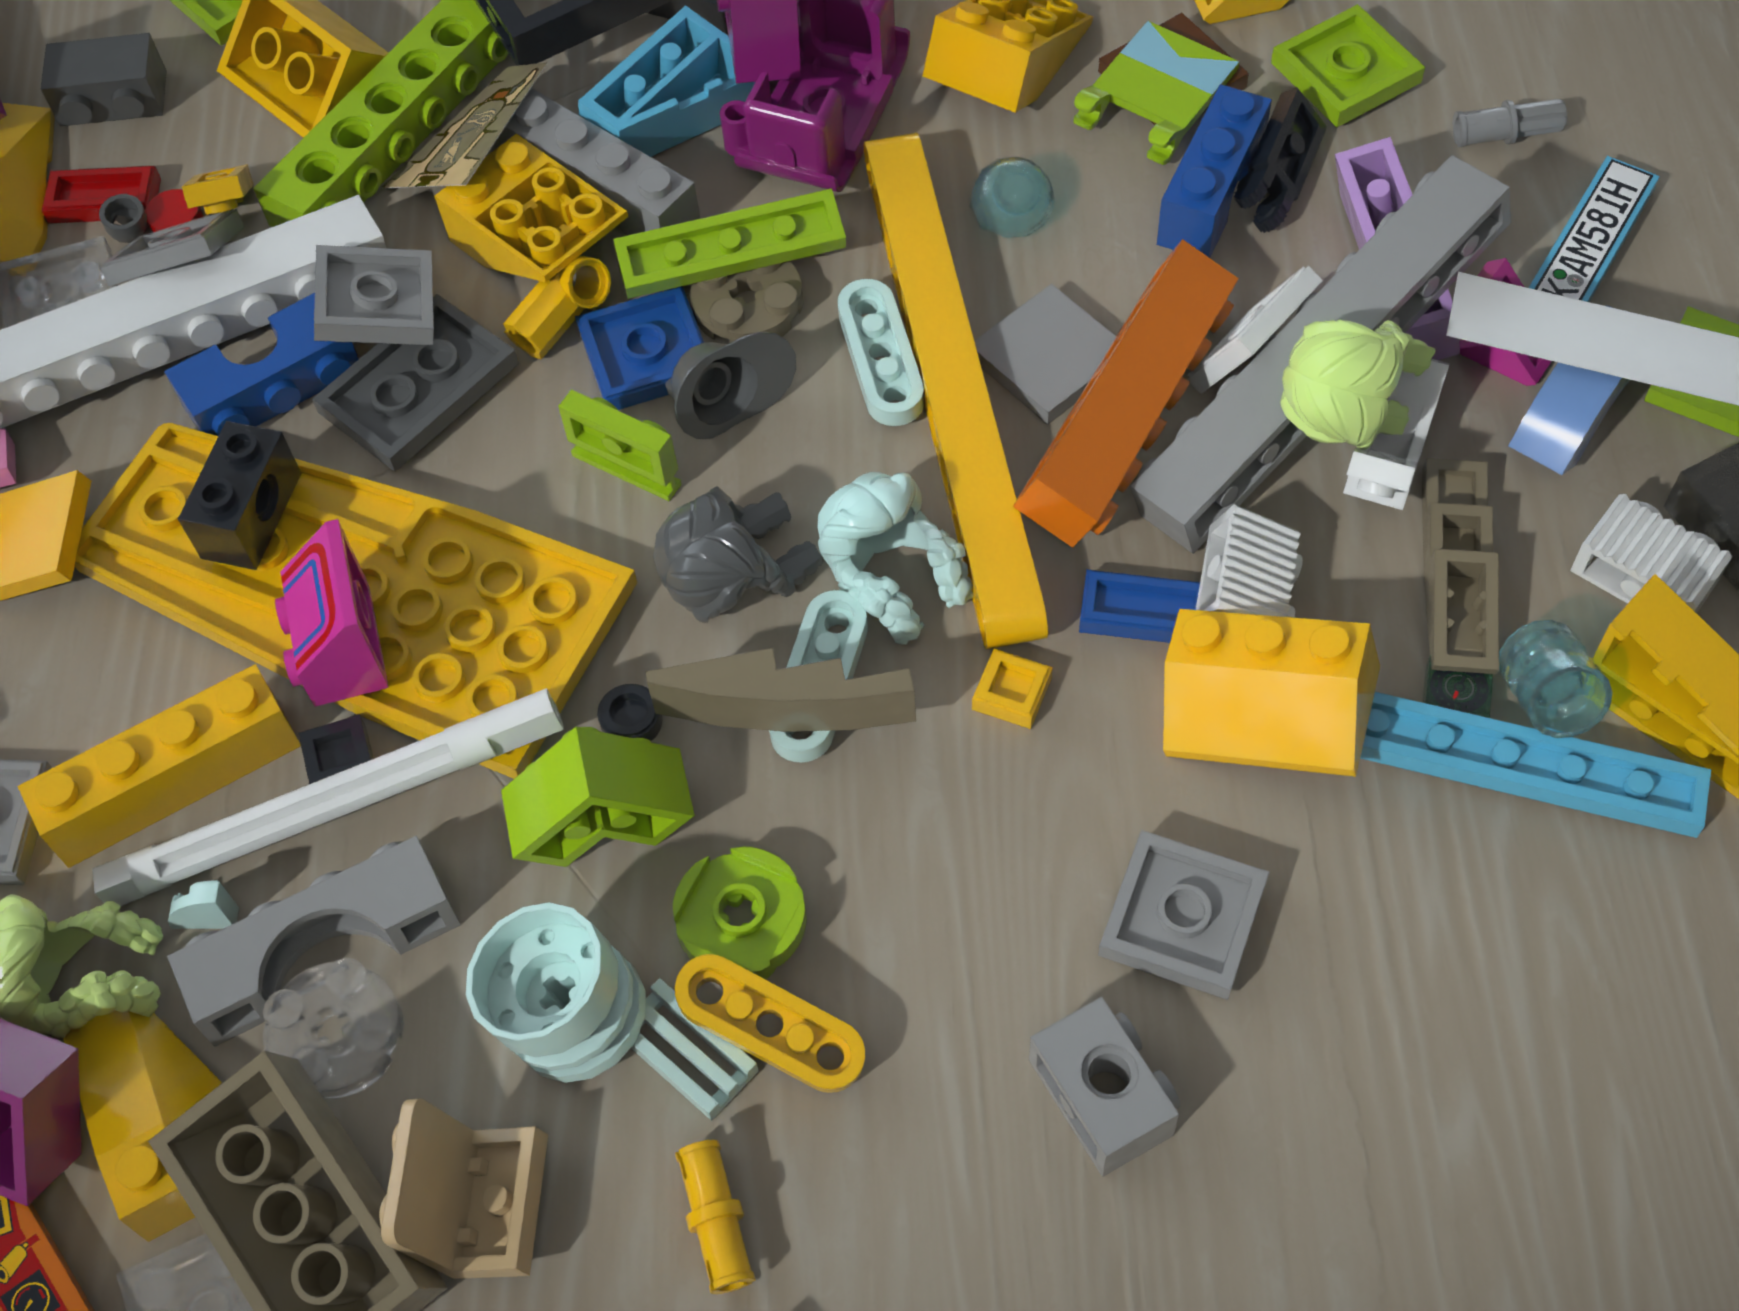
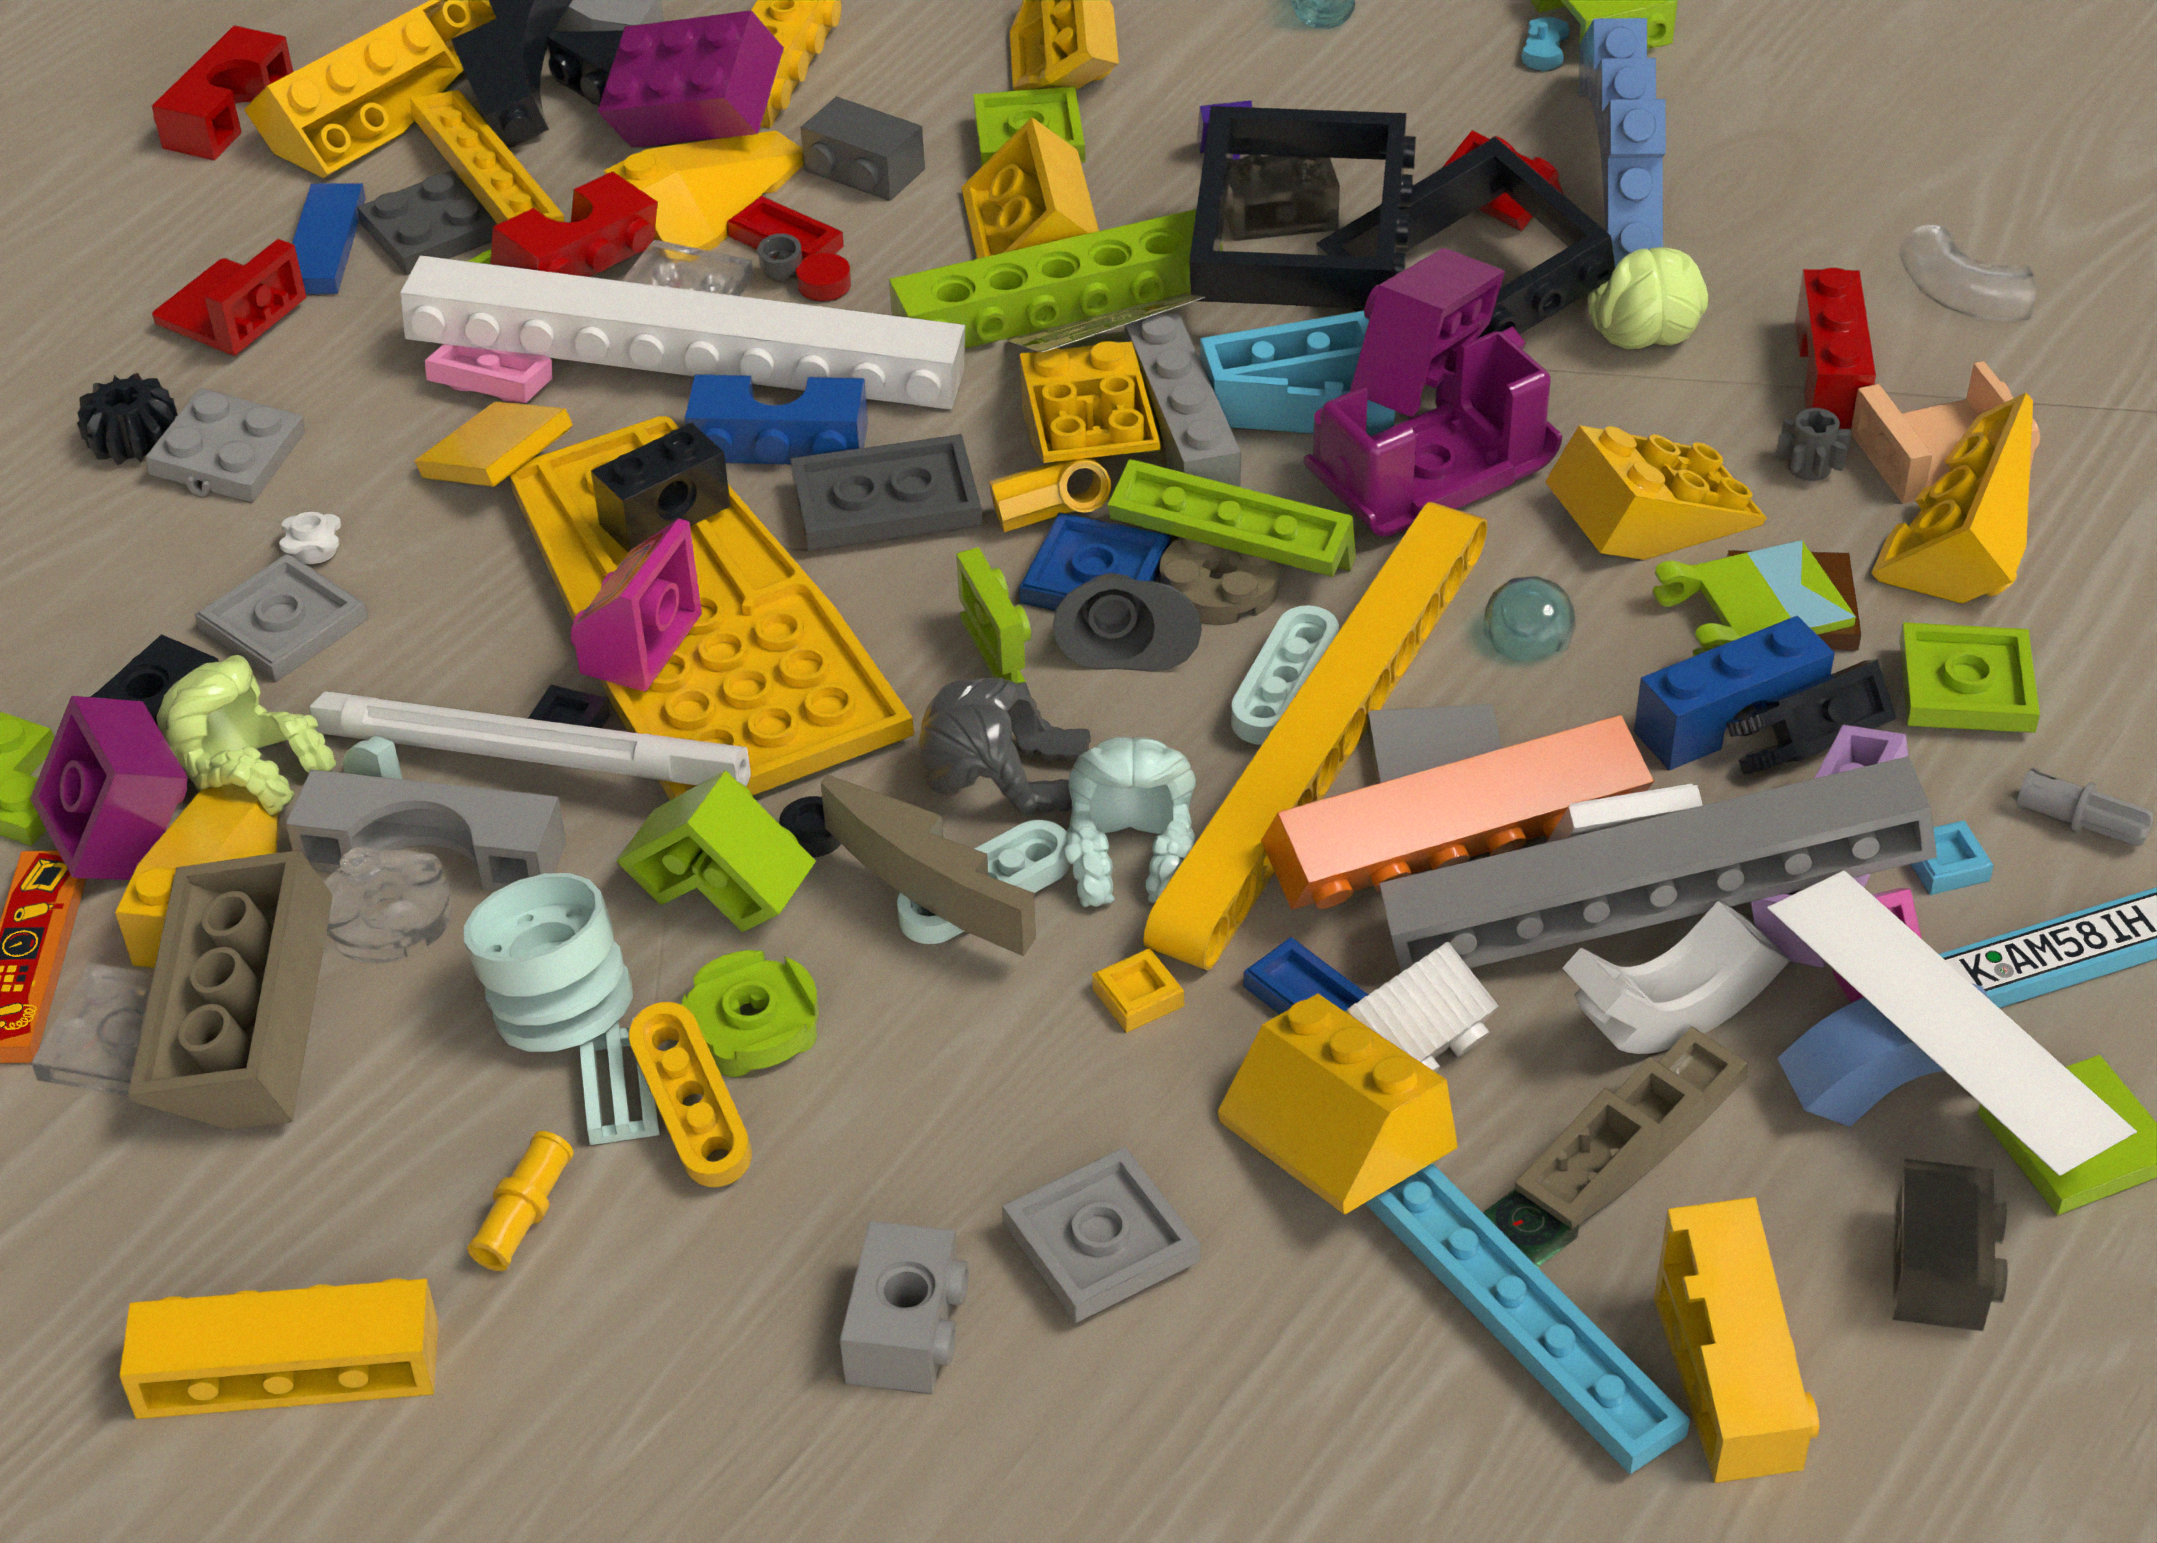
camera: 35 degrees right, 15 degrees down
(158, 766) = (434, 649): yellow brick -> none
(172, 246) = (789, 290): light grey tile -> none
(218, 189) = (863, 269): yellow plate -> none
(373, 295) = (899, 401): light grey plate -> none
(463, 1194) = (351, 1049): tan bracket -> none
(1344, 377) = (1620, 866): yellowish green hair -> none
(1554, 679) = (1605, 1251): clear light blue wheel -> none
(1637, 543) = (1821, 1232): white brick -> none

